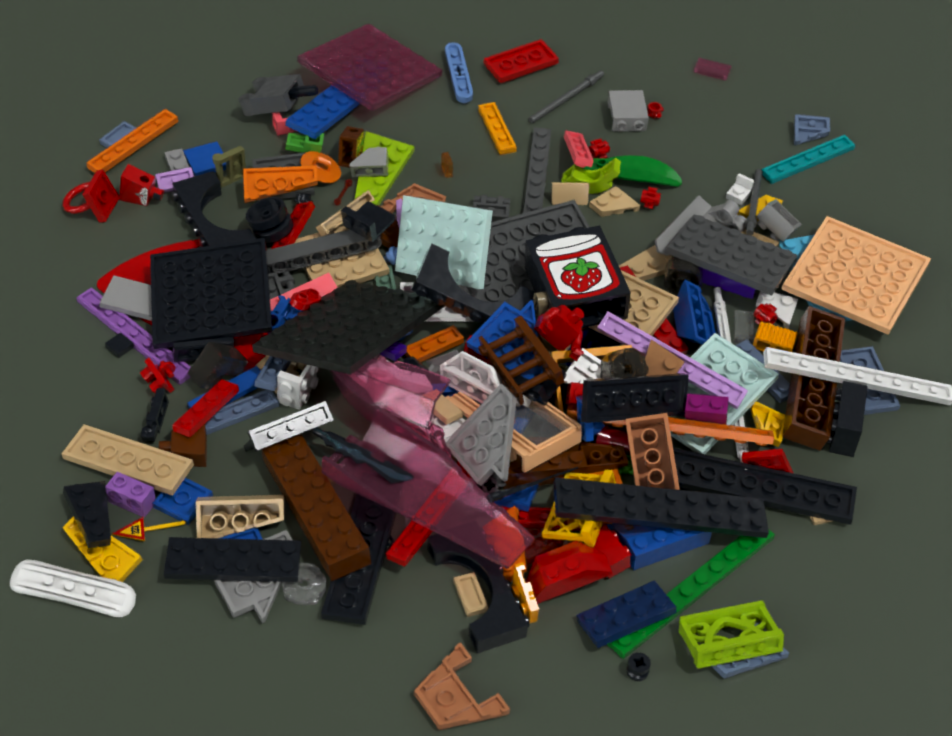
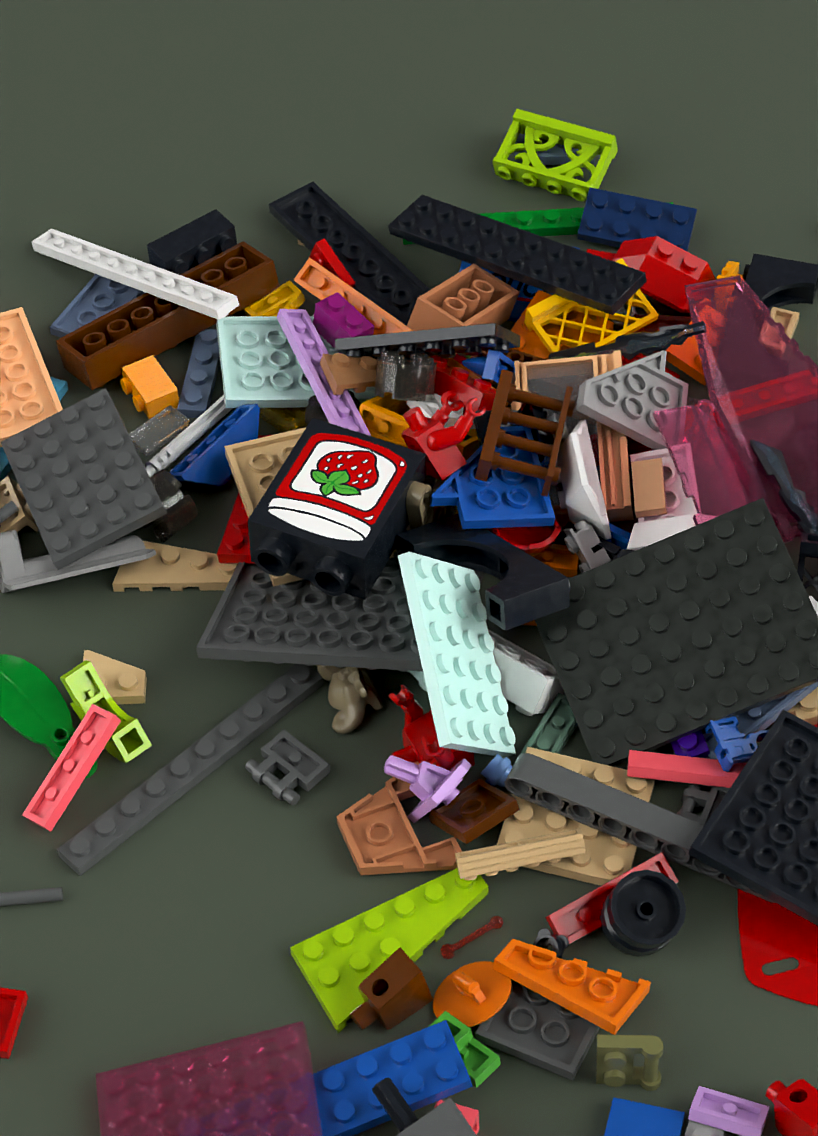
camera: 135 degrees left, 0 degrees up
(192, 197) = (724, 1054): black arch -> none
(303, 299) = (699, 734): red plate -> none
(367, 221) = (523, 766): black bracket -> none
(371, 163) = (397, 923): light grey slope -> none
(447, 165) = (278, 875): clear orange tile -> none
(456, 61) = (87, 1038): medium blue piece -> none
(497, 128) = (126, 913): light orange tile -> none
(569, 191) = (157, 727): tan slope -> none
(599, 148) = (35, 762): red gear -> none
(640, 672) = (669, 186): black wheel -> none
(650, 197) = (61, 645): red gear -> none
(765, 313) = (129, 413): red gear -> none

